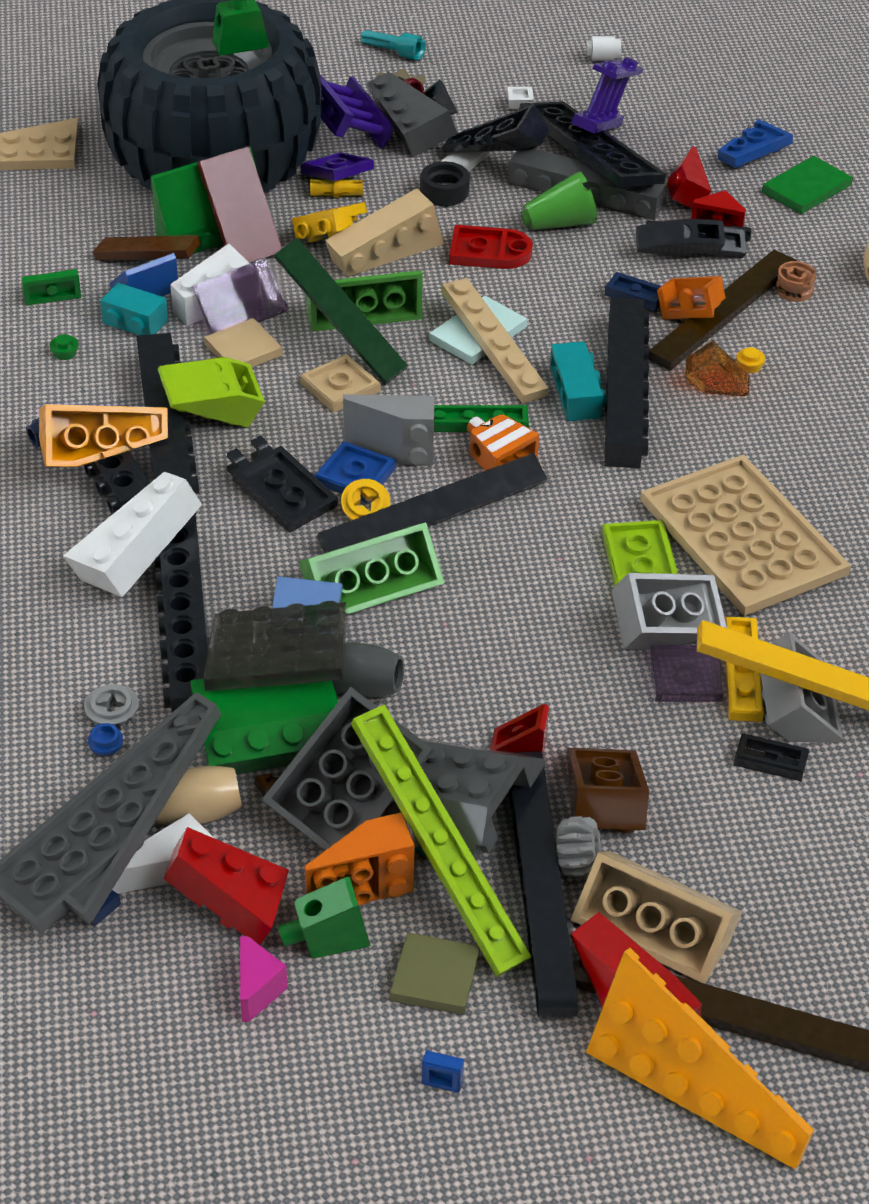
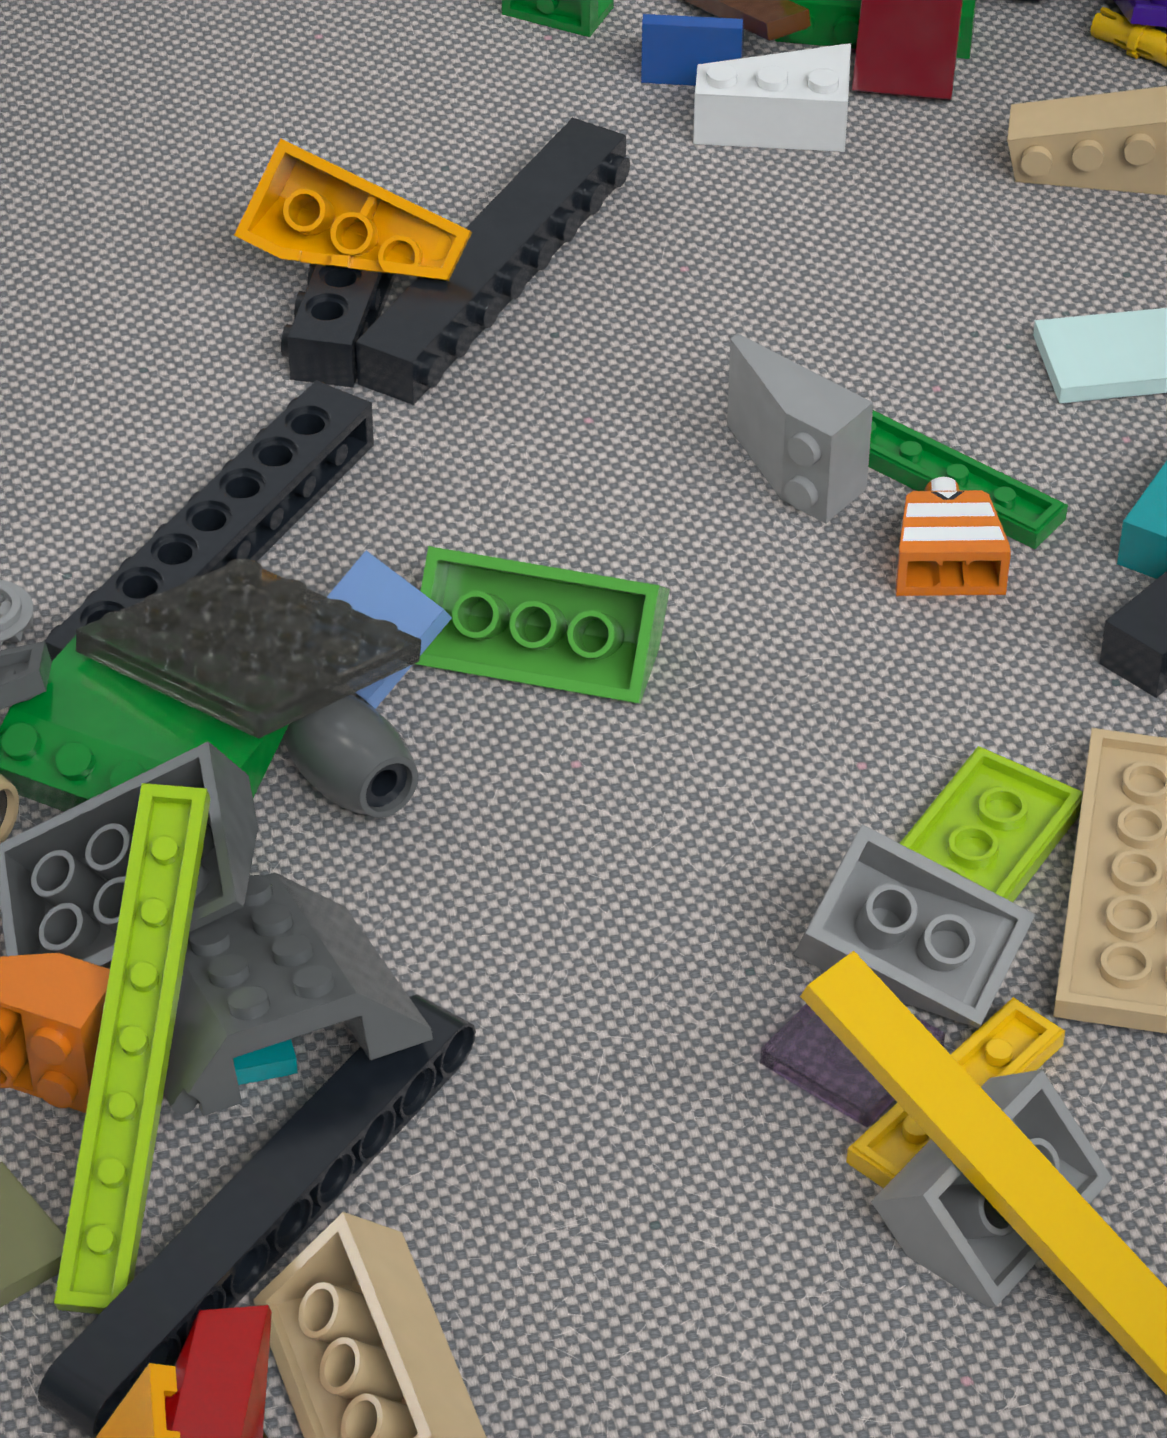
camera: 40 degrees right, 0 degrees up
(64, 346) = (480, 93): green plate -> none
(134, 310) = (626, 84): teal brick -> none
(134, 535) = (243, 388): white wedge -> none
(214, 389) = (586, 242): lime slope -> none
(240, 296) = (790, 133): clear purple piece -> none
(244, 343) = (734, 209): tan tile -> none
(281, 485) = (557, 436): black tile -> none
(326, 221) = (1047, 78): yellow plate -> none
(339, 378) = (821, 329): tan tile -> none
(341, 311) = (891, 215): dark green tile -> none
(354, 463) = (692, 471): blue tile -> none
(371, 491) = (630, 503): yellow gear -> none
(379, 297) = (976, 223): bright green slope -> none
(439, 503) = (764, 581): black tile -> none
(495, 340) = (1120, 381): tan plate -> none
(523, 733) = (485, 991): red slope -> none
(577, 845) = (357, 1179): light grey gear -> none
(608, 788) = (512, 1139): reddish brown slope -> none
(769, 760) = (871, 1298): black tile -> none

